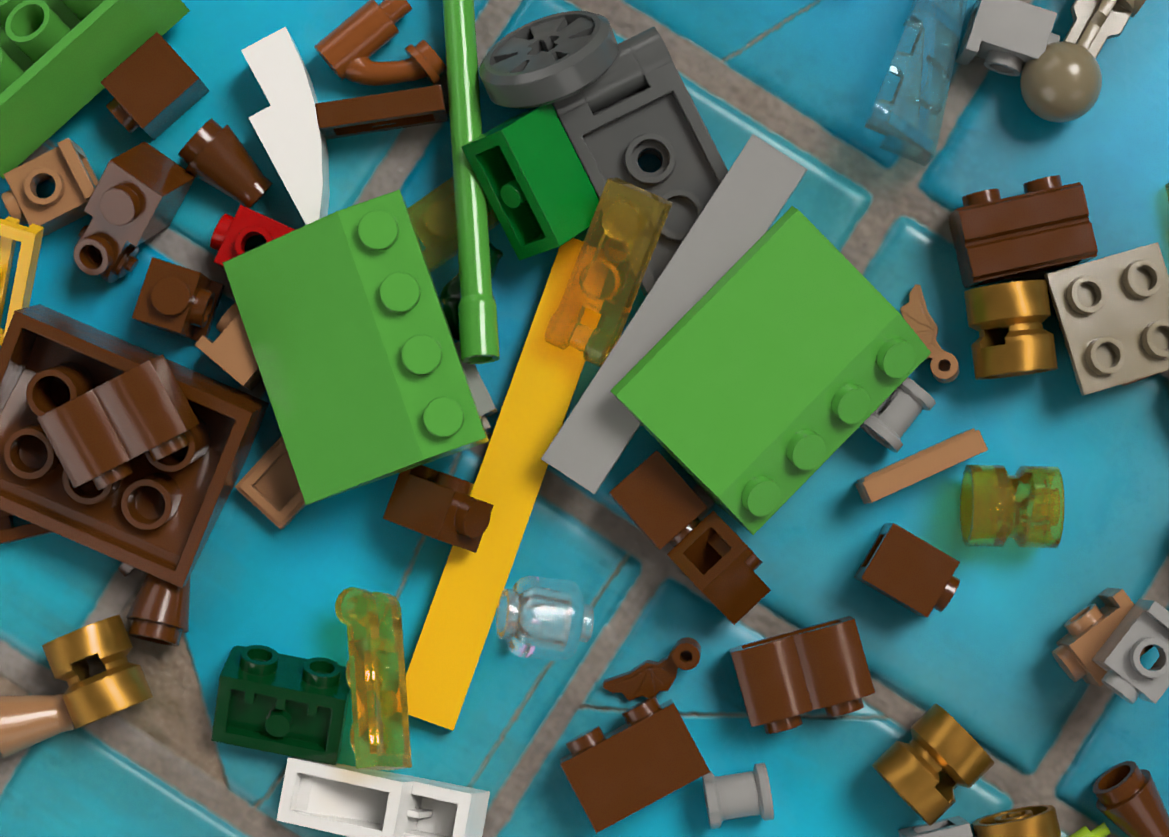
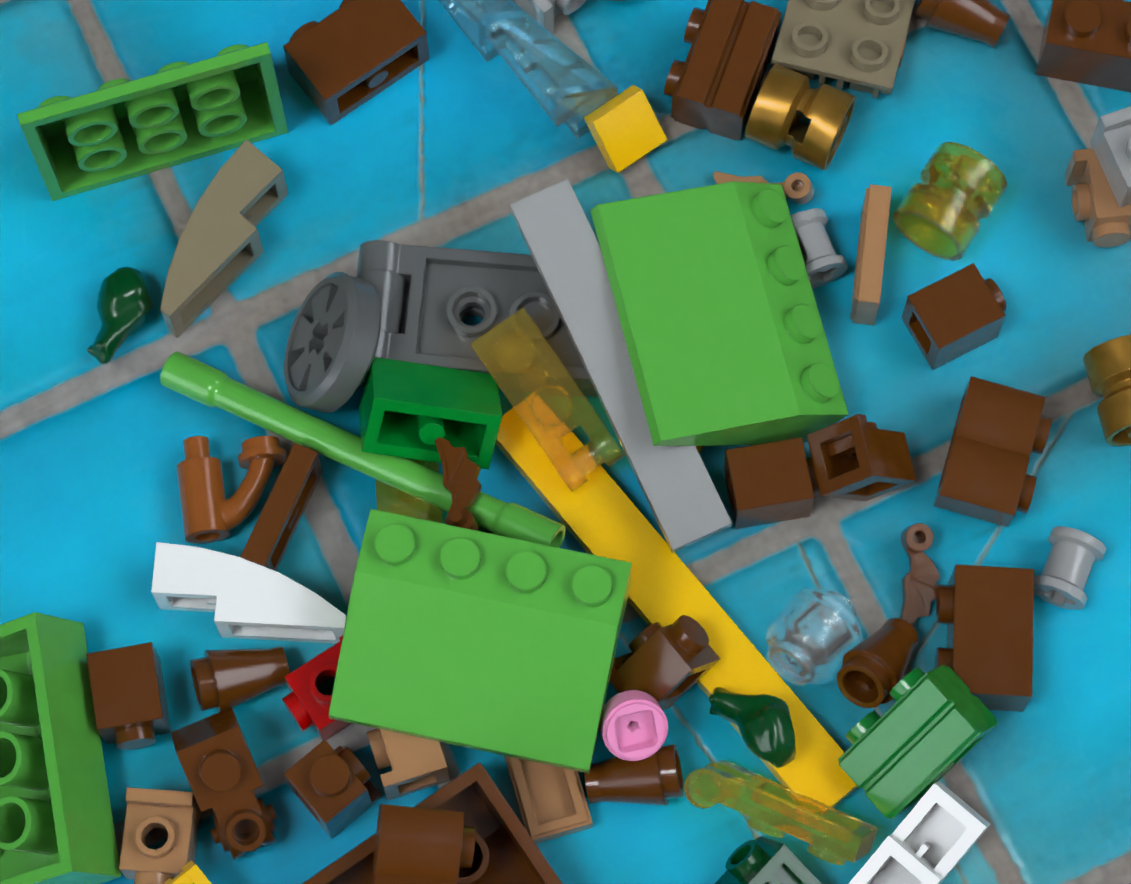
camera: 55 degrees left, 15 degrees down
(340, 543) = (637, 782): none -> reddish brown cone
(367, 517) = (633, 725): none -> bright pink tile
(438, 620) = (762, 722): none -> dark green animal
(481, 248) = (461, 481): none -> reddish brown piece
(499, 758) = (916, 739): none -> brick
(553, 686) = (877, 664): none -> reddish brown cone
(907, 184) = (625, 128): none -> yellow tile

